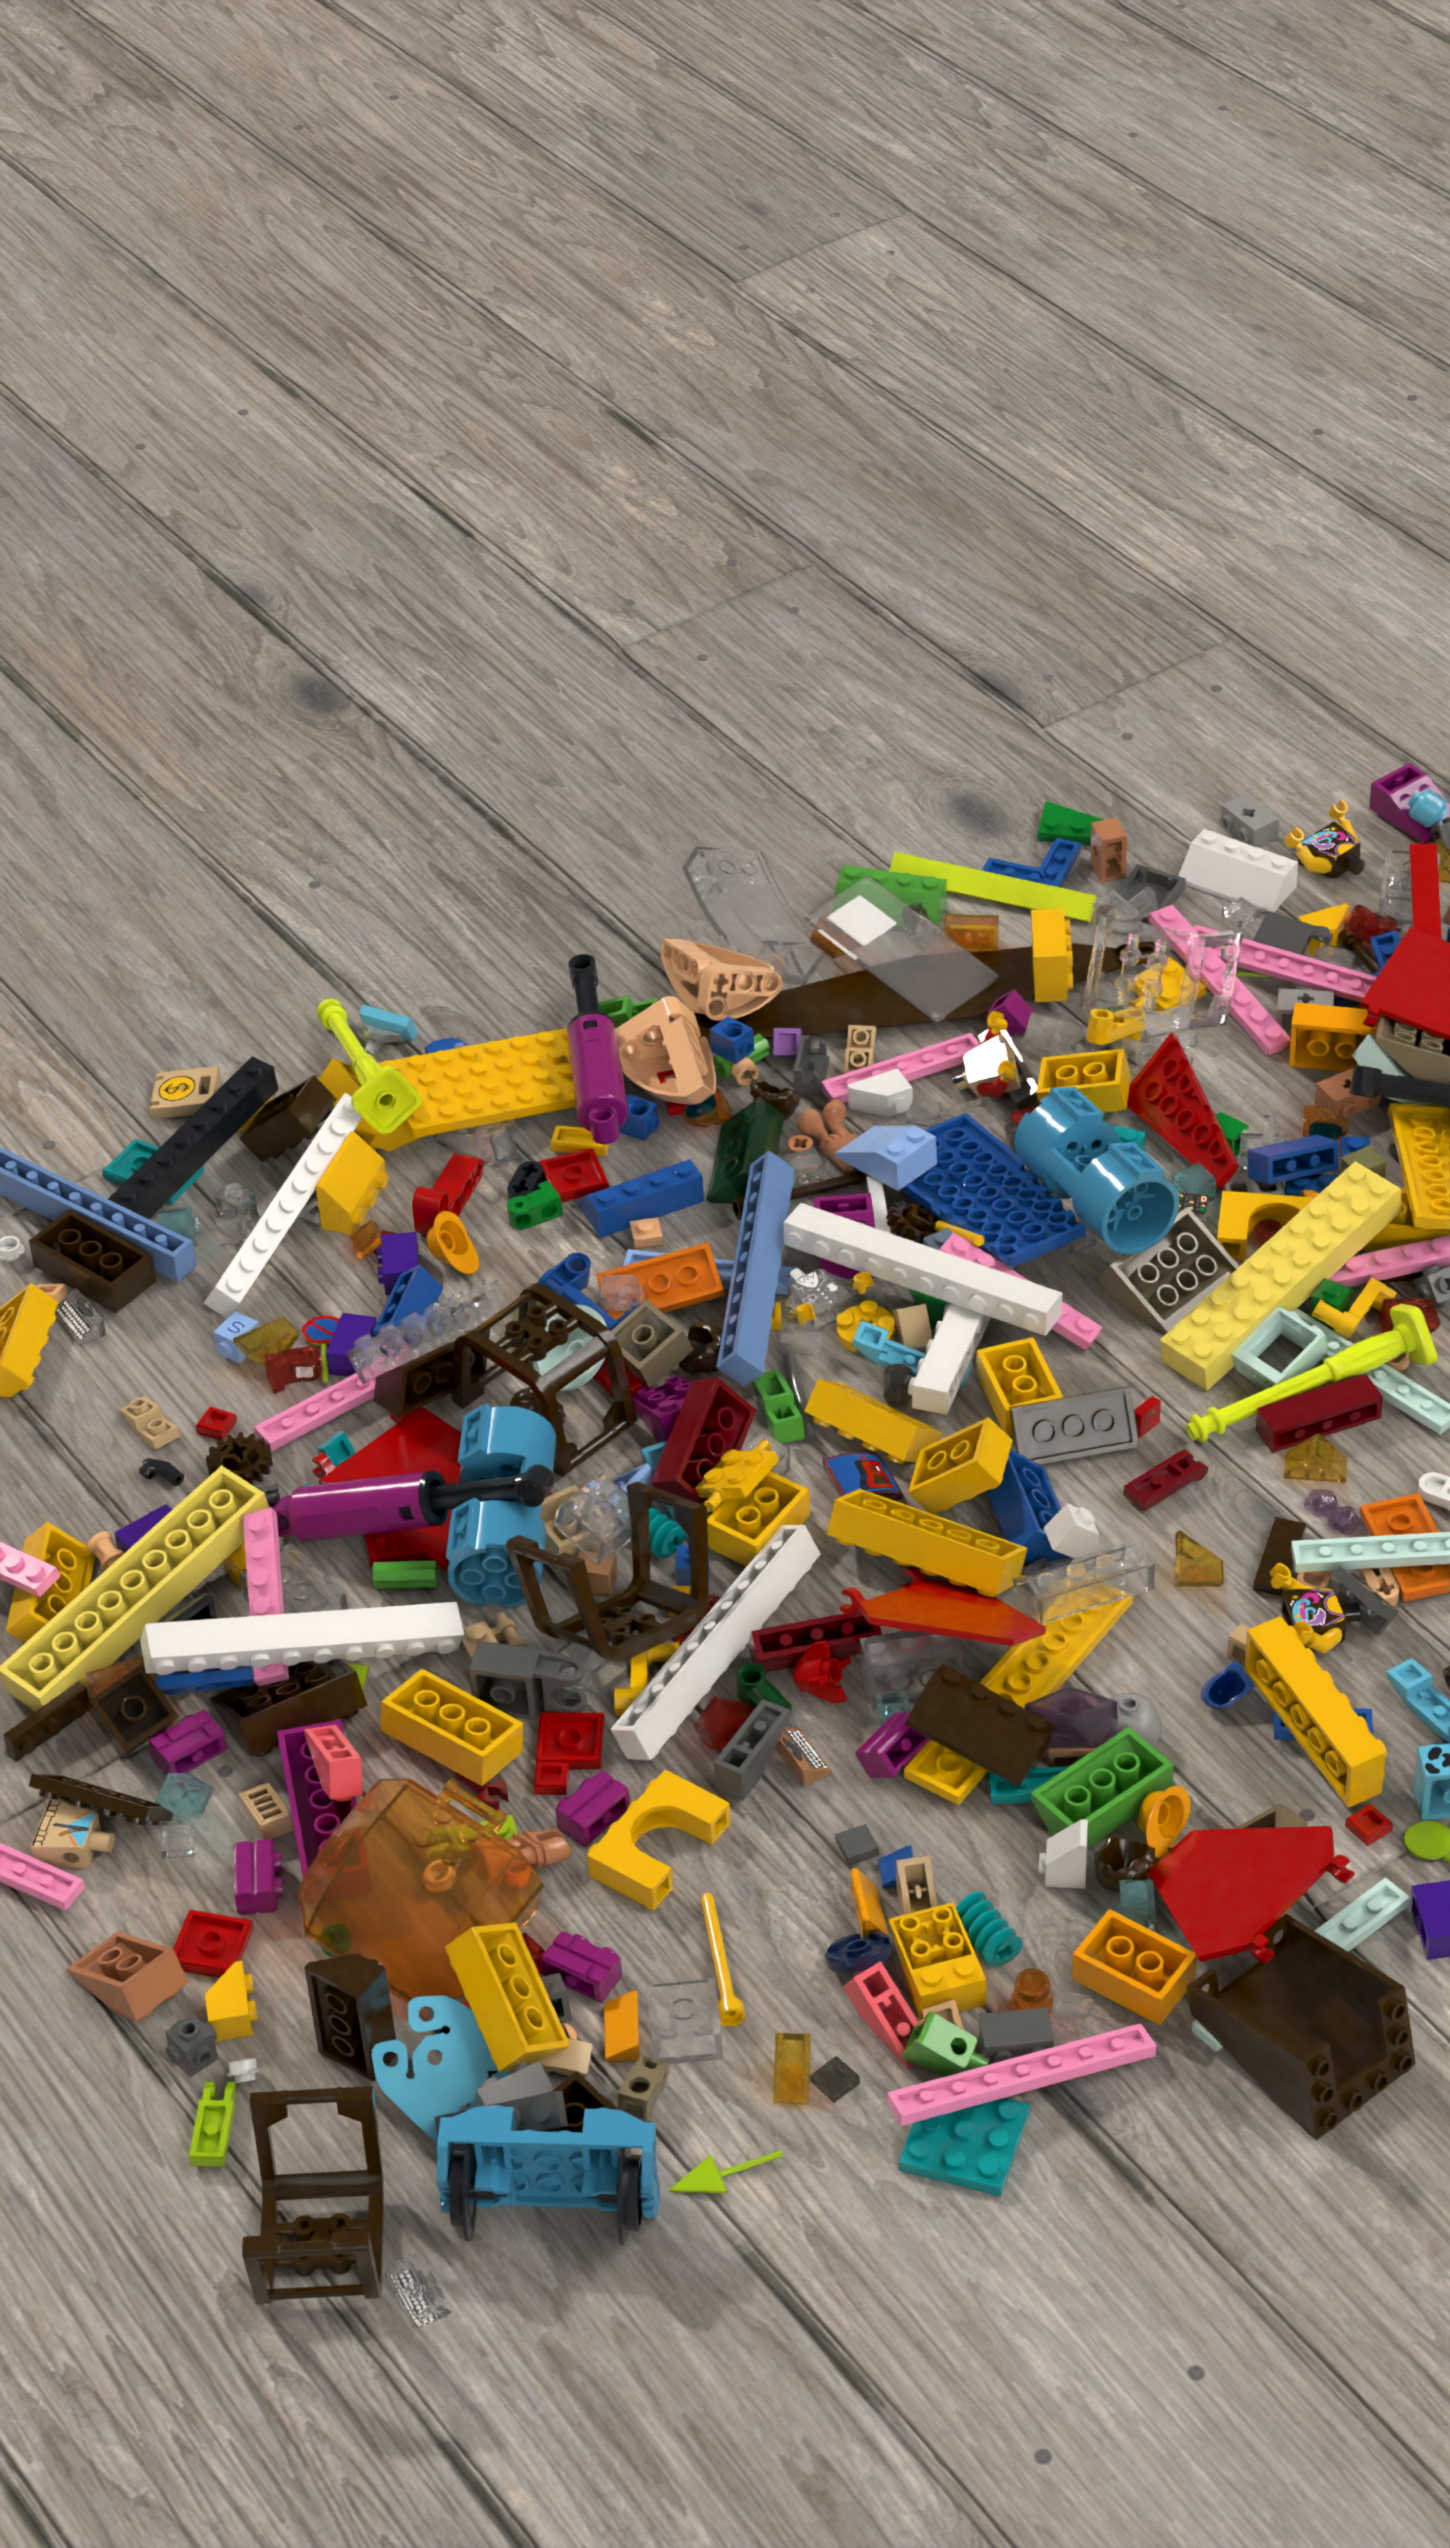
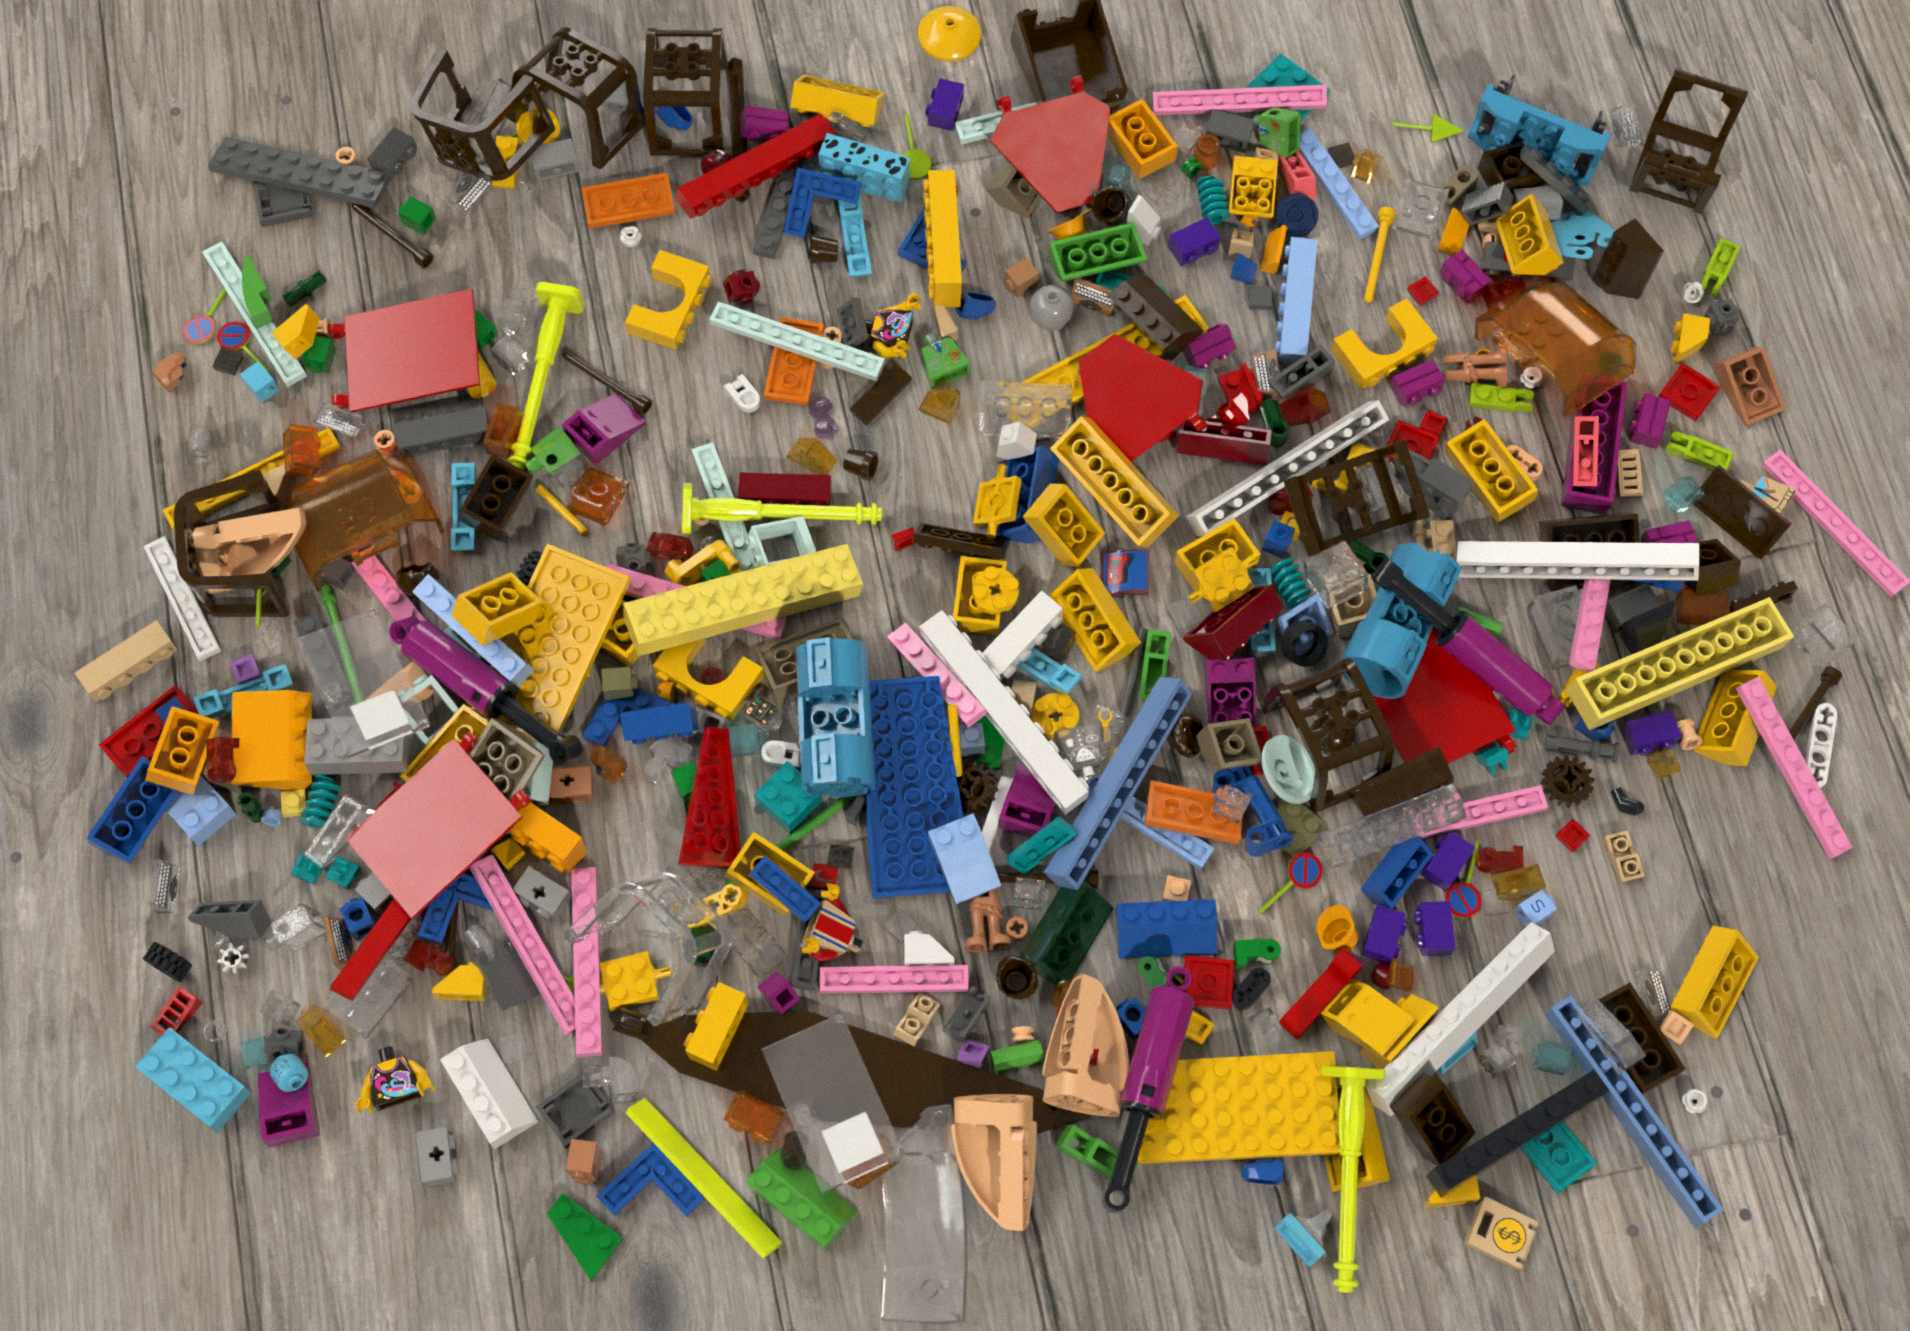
camera: 160 degrees left, 25 degrees up
(118, 1225) = (1610, 1035): none -> clear slope
(122, 1517) = (1663, 764): none -> clear yellow tile
(175, 1868) = (1699, 451): none -> lime hinge
(345, 1285) = (1435, 928): none -> dark purple brick
(388, 1172) = (1366, 1017): none -> yellow slope
(416, 1769) = (1526, 462): none -> light nougat beam
(515, 1286) = (1304, 872): none -> piece
(558, 1592) = (1367, 555): none -> dark green piece
(589, 2051) = (1487, 203): none -> dark grey brick
(615, 1462) = (1318, 648): none -> black tyre
(628, 1153) = (1153, 972): none -> green leg
(635, 1937) = (1422, 291): none -> red tile
(732, 1040) = (1026, 1059): blue brick -> none
(804, 1851) = (1297, 300): none -> light blue brick
(809, 1187) = (1041, 845): none -> teal plate
(825, 1722) = (1241, 381): none -> red bracket
(827, 2033) = (1336, 185): none -> light blue plate
(984, 1867) = (1194, 242): none -> dark purple brick
(989, 1361) = (995, 578): none -> yellow plate
(1046, 1965) = (1191, 167): none -> green bush
(1056, 1058) = (784, 889): none -> blue plate
(1056, 1479) = (997, 501): none -> yellow plate
(1078, 1715) = (1092, 303): slope -> none
(1164, 1479) = (920, 483): dark red plate -> none
(1189, 1741) = (1021, 277): none -> medium nougat brick
(1223, 1608) = (943, 361): none -> bright green torso
(1249, 1468) = (861, 463): none -> dark brown piece

